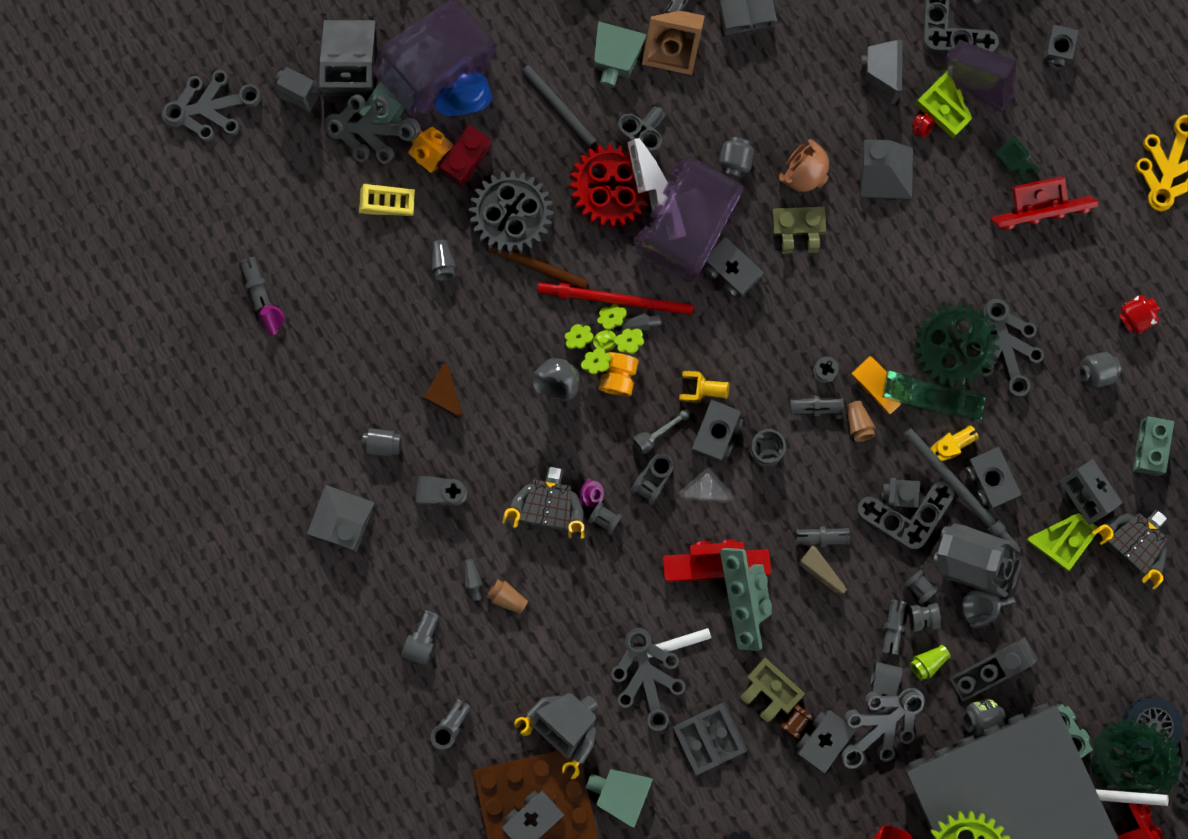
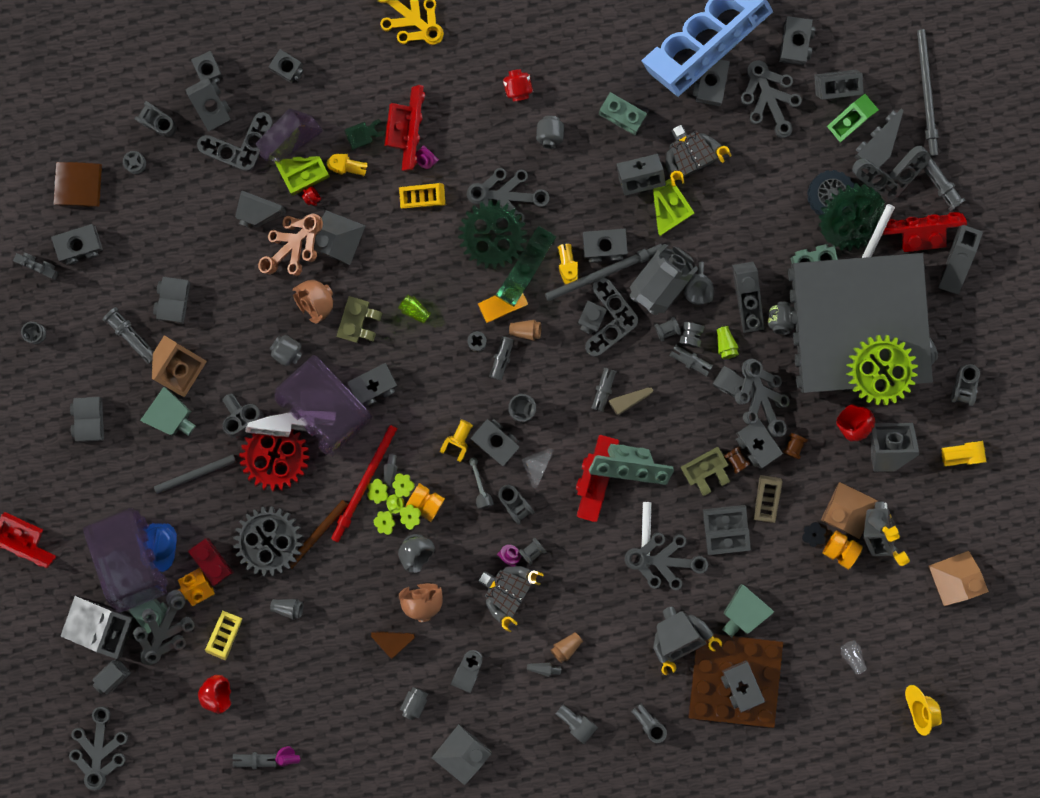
camera: 70 degrees left, 5 degrees up
(316, 213) = (215, 694): none -> red hair
(500, 409) = (421, 603): none -> nougat cylinder
(786, 769) = (776, 491): none -> dark tan slope
(836, 285) = (413, 308): none -> clear neon green cone
(838, 785) = (794, 446): none -> reddish brown bush
(890, 133) = (294, 244): none -> nougat plant
(972, 144) = (344, 164): none -> yellow piece
(979, 269) = (440, 196): none -> yellow slope
(1015, 239) = (426, 158): none -> magenta plate

